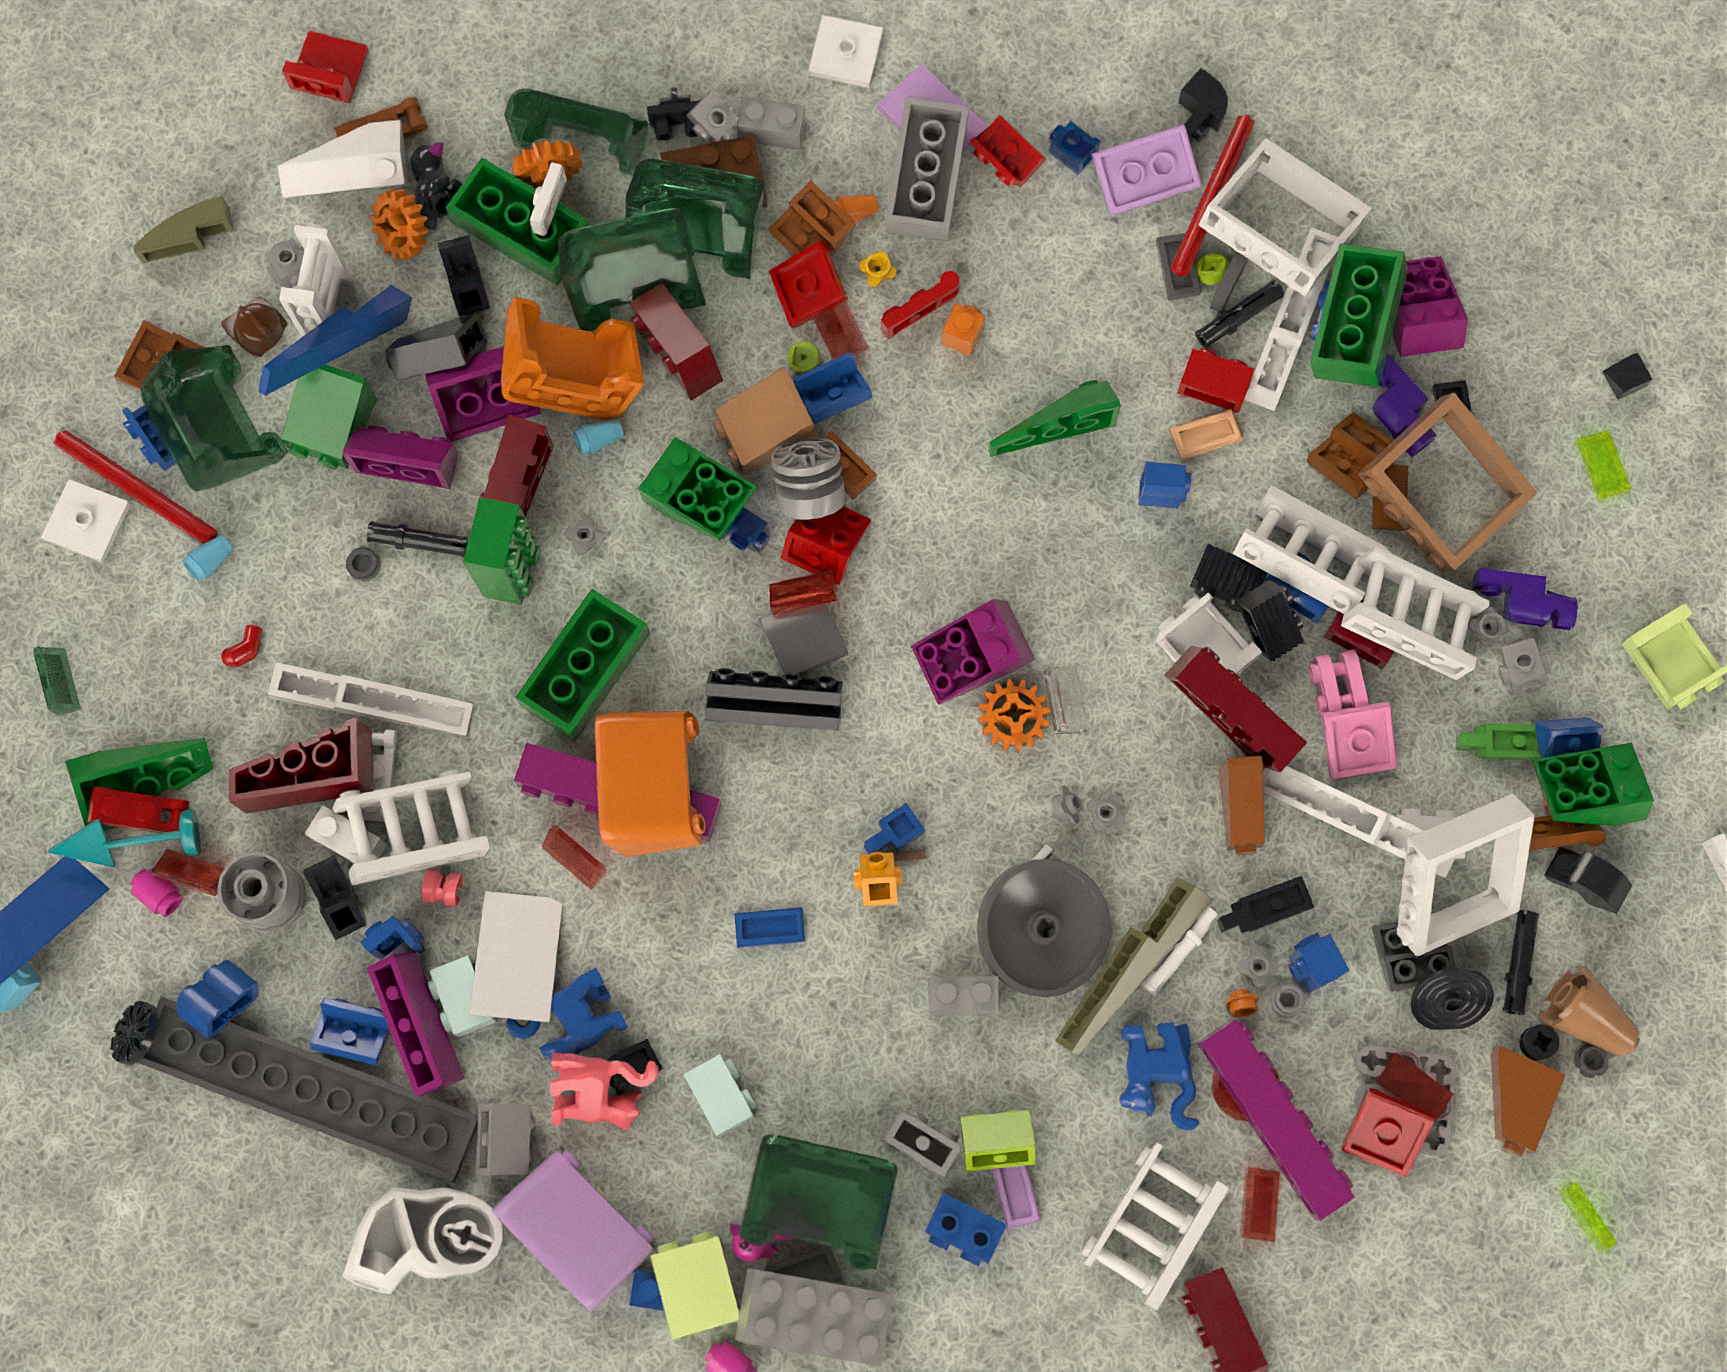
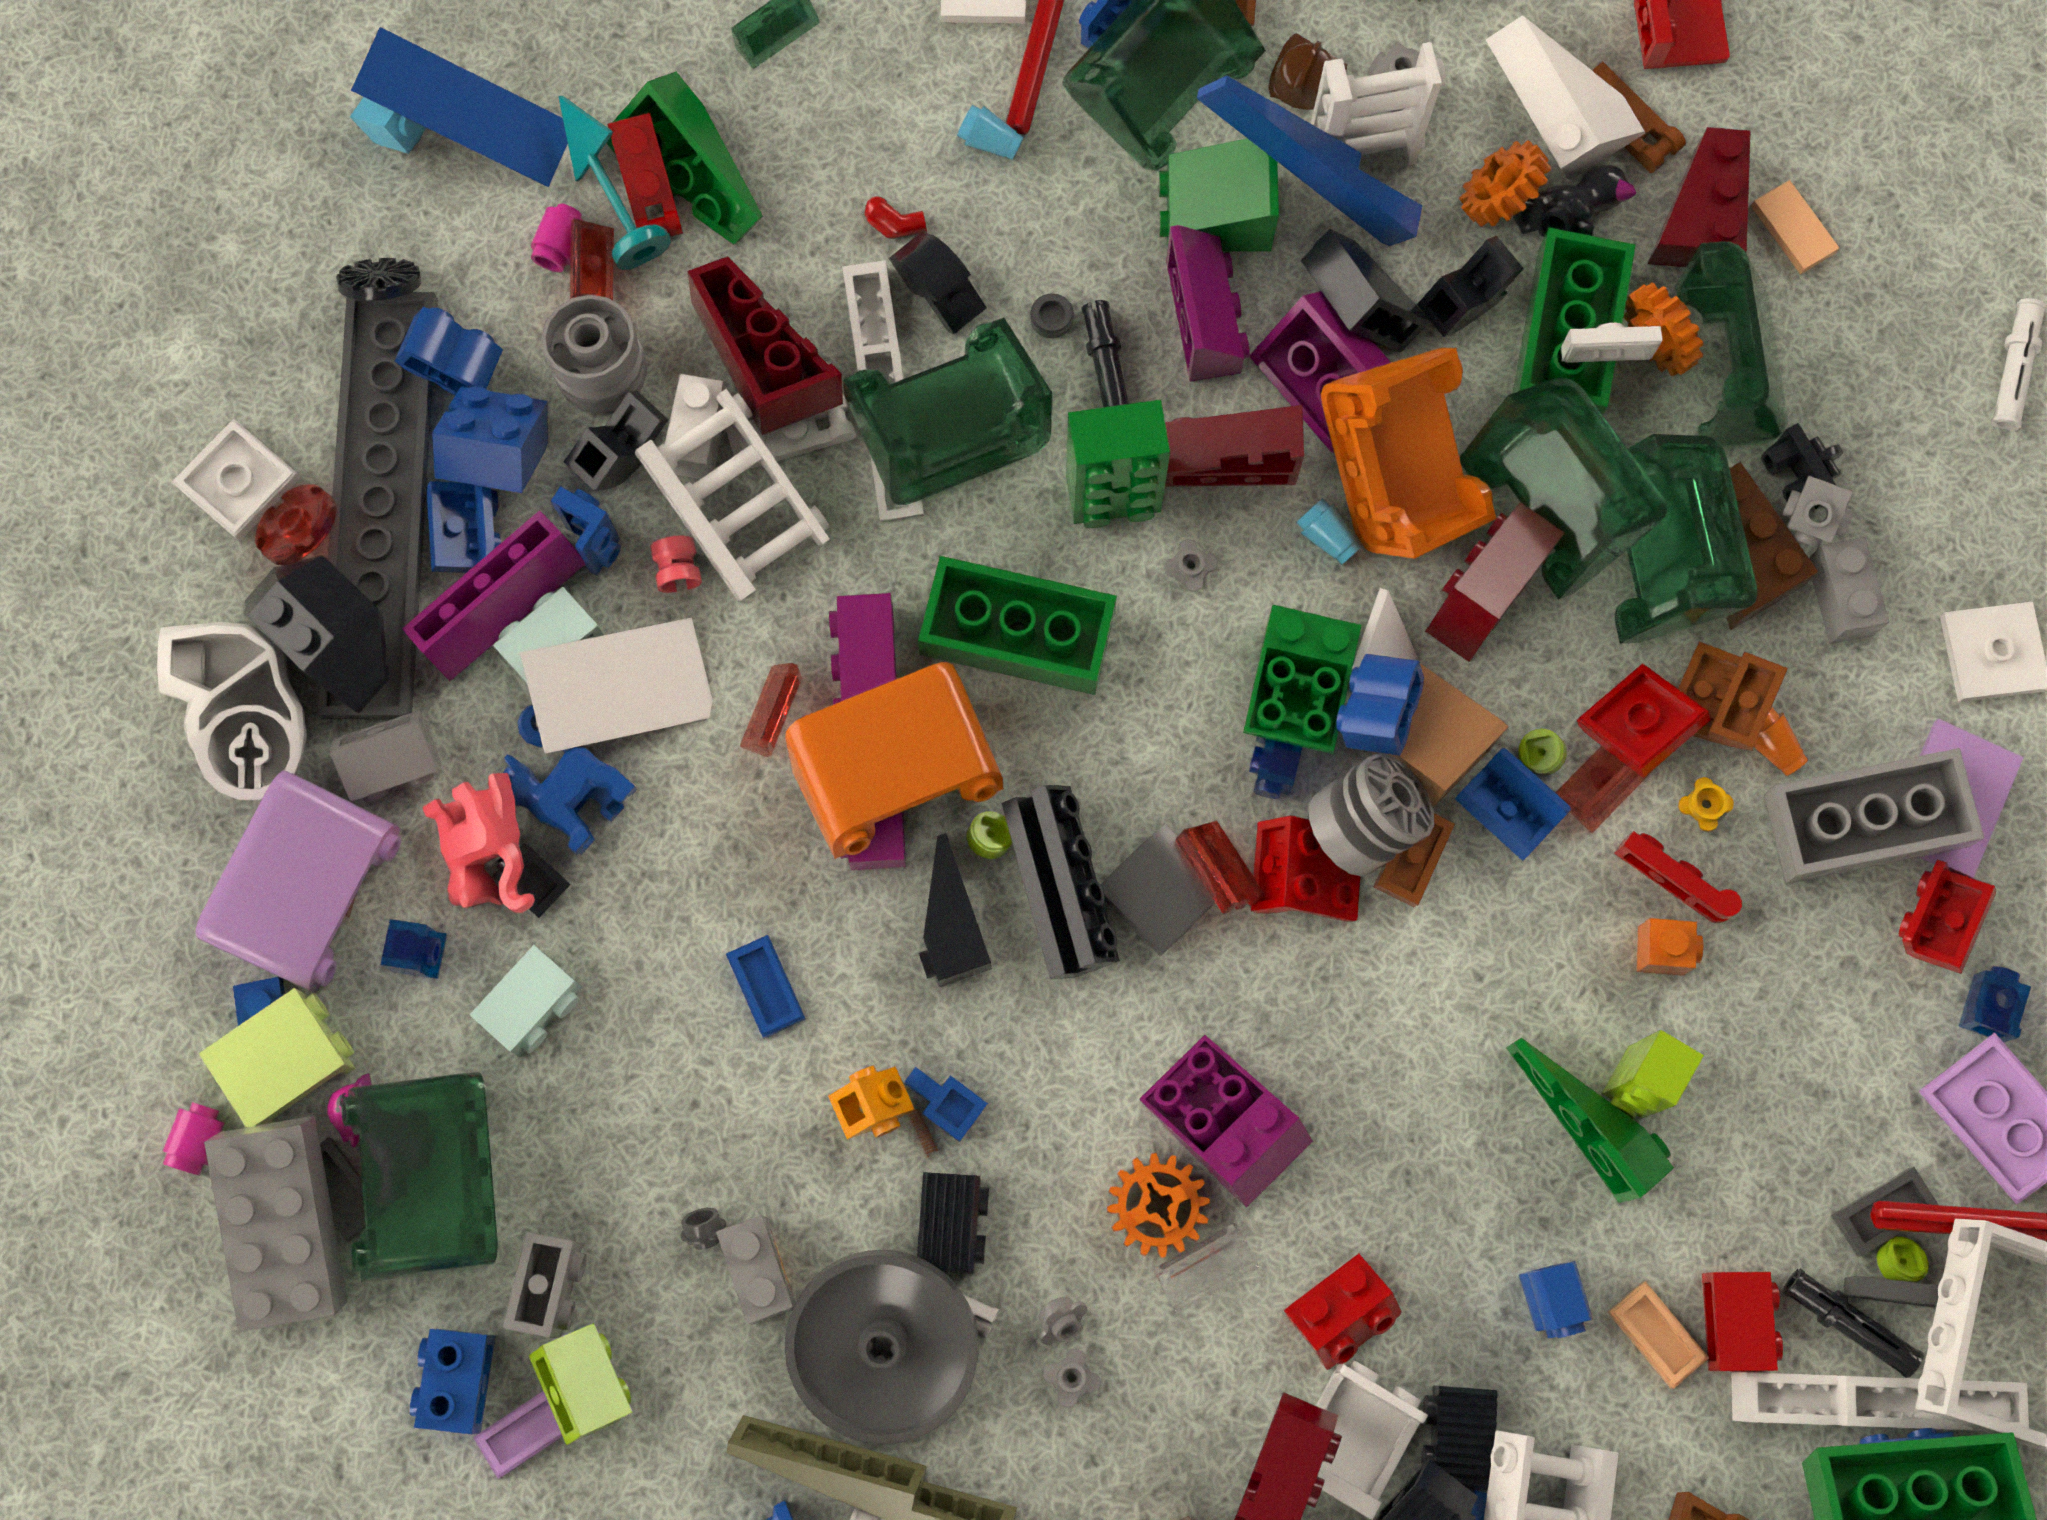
camera: 70 degrees right, 0 degrees up
(246, 1190) = (236, 479): none -> white plate
(297, 986) = (490, 439): none -> blue piece
(301, 1153) = (296, 525): none -> clear red tile
(304, 628) = (941, 277): none -> black brick
(389, 1153) = (324, 627): none -> black wedge
(412, 653) = (954, 416): none -> clear green windscreen
(467, 100) = (1709, 200): none -> dark red wedge
(505, 53) = (1795, 227): none -> light nougat tile
(653, 1163) = (413, 949): none -> clear blue brick
(689, 427) = (1385, 632): none -> white slope
(722, 738) = (989, 835): none -> lime tile
(736, 442) = (1381, 704): none -> blue brick
(777, 785) = (950, 928): none -> black slope
(921, 1024) = (701, 1228): none -> dark grey plate
(975, 854) = (951, 1221): none -> black brick
(1045, 368) = (1652, 1075): none -> lime brick
(1124, 622) = (1344, 1312): none -> red bracket

